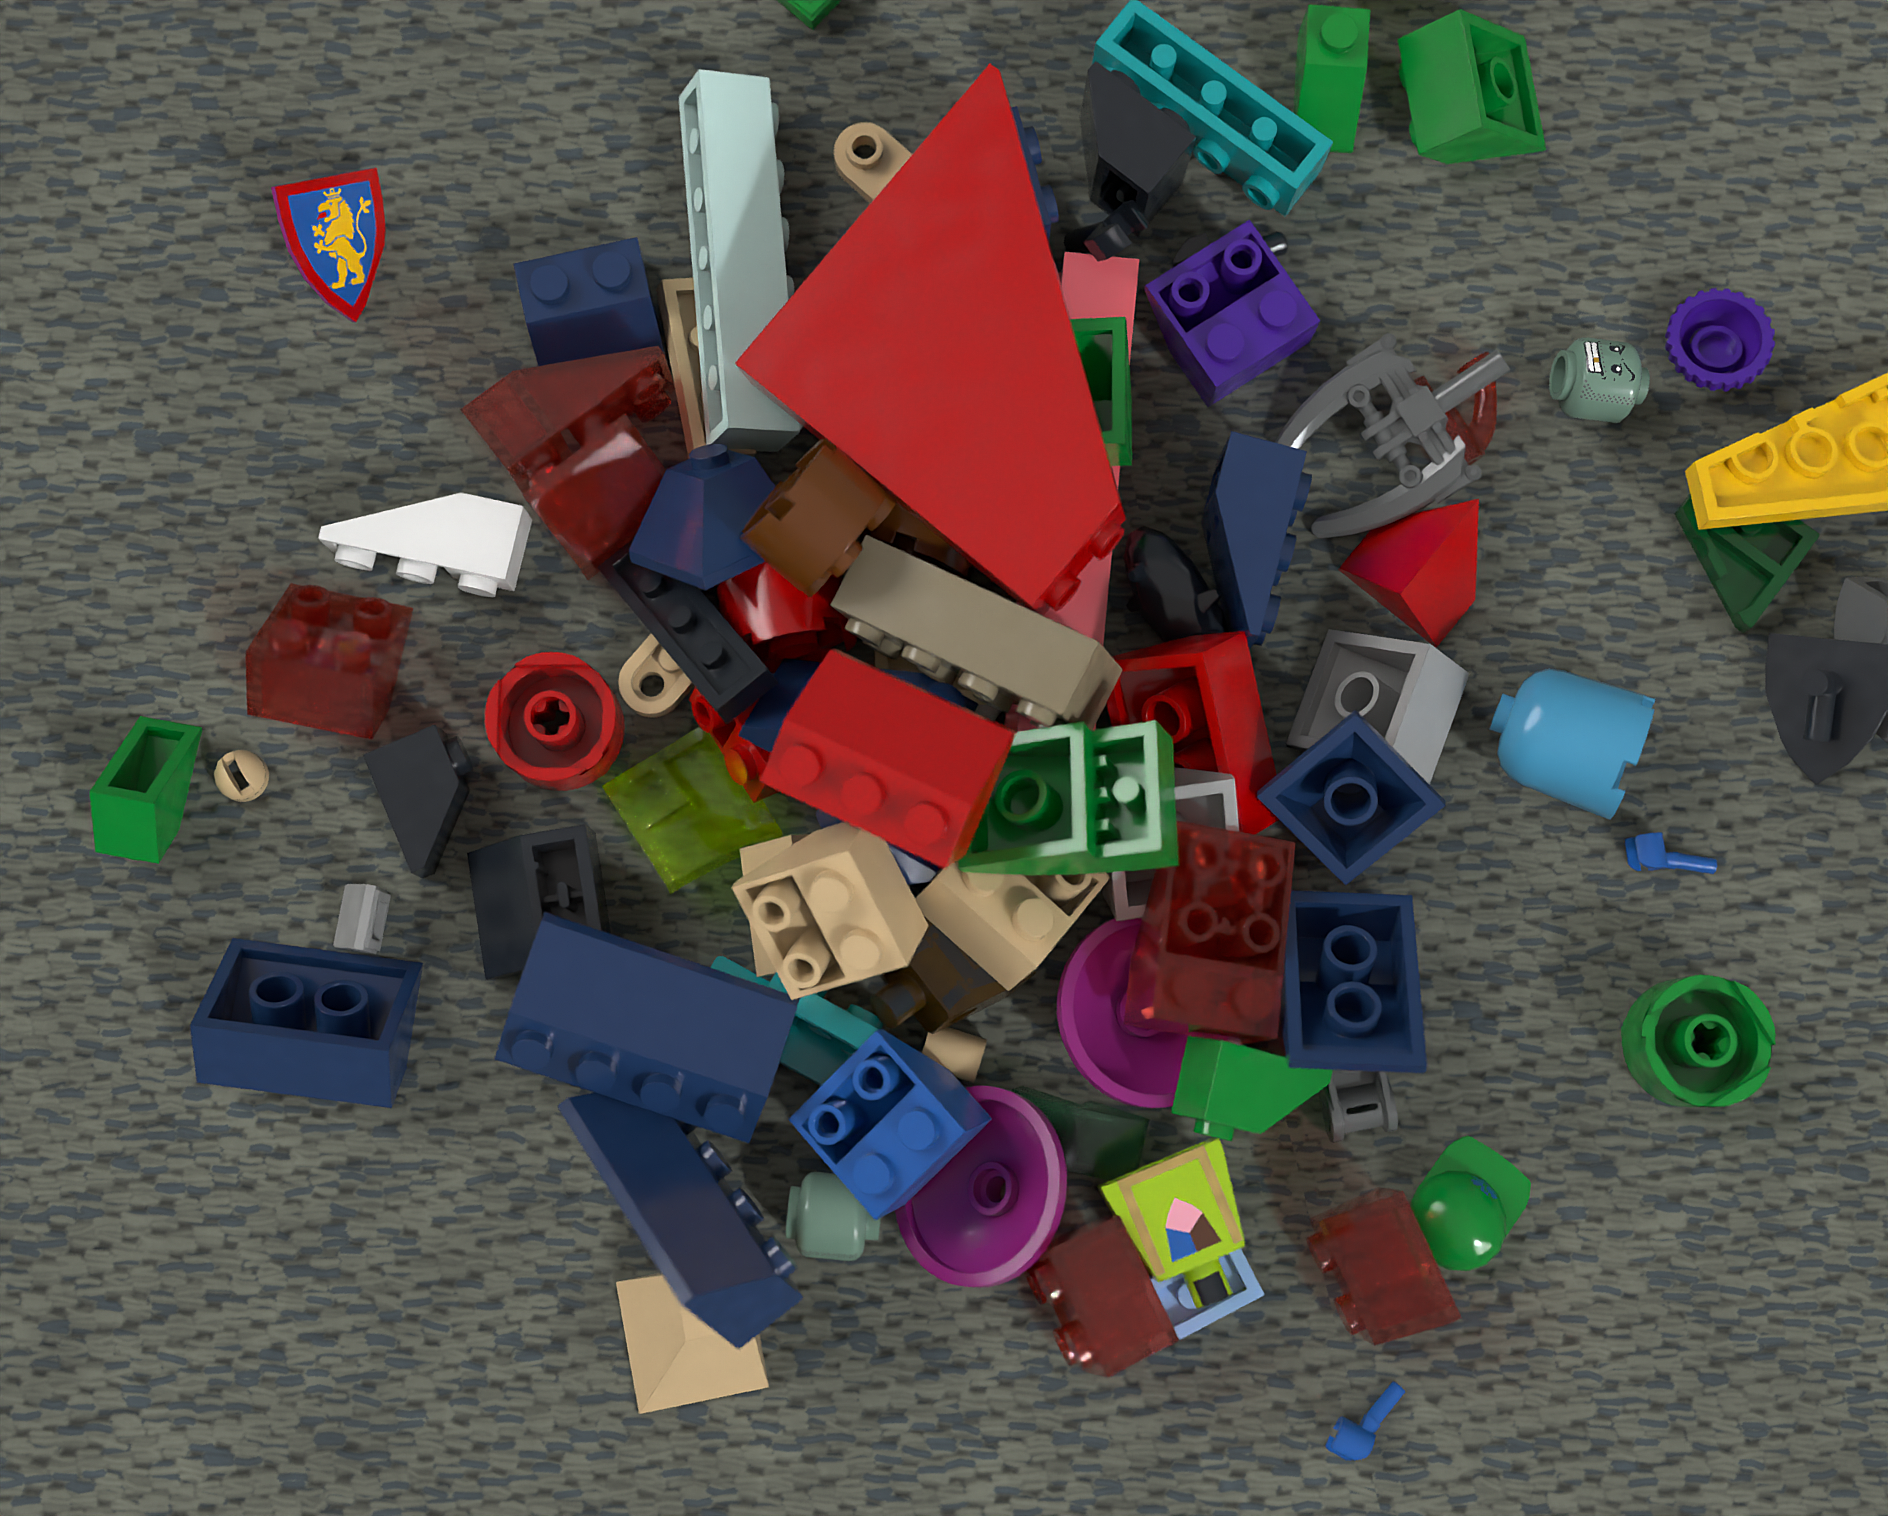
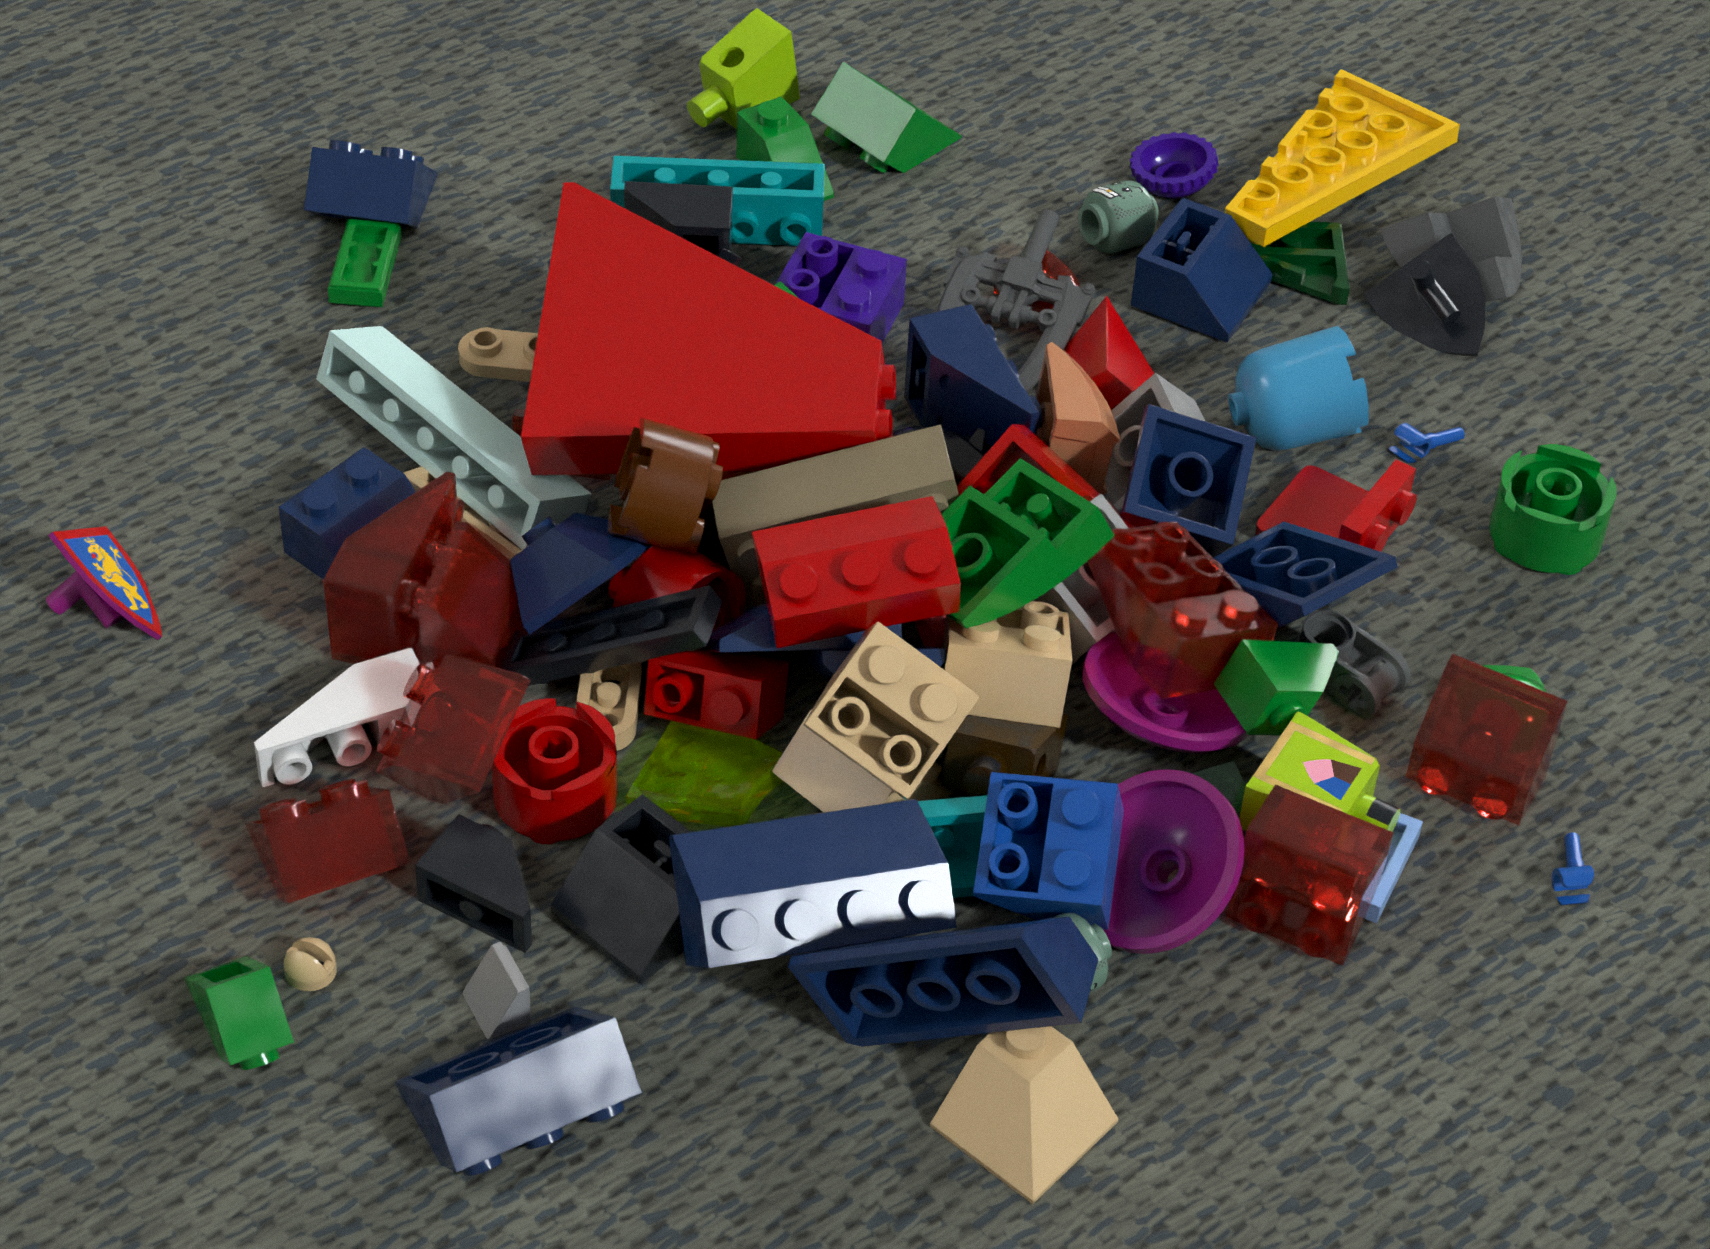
camera: 35 degrees left, 35 degrees down
(480, 635) = (450, 727): none -> clear red slope
(1312, 637) = (1075, 417): none -> nougat slope
(1490, 898) = (1344, 509): none -> red bracket
(1617, 512) = (1200, 271): none -> dark blue slope

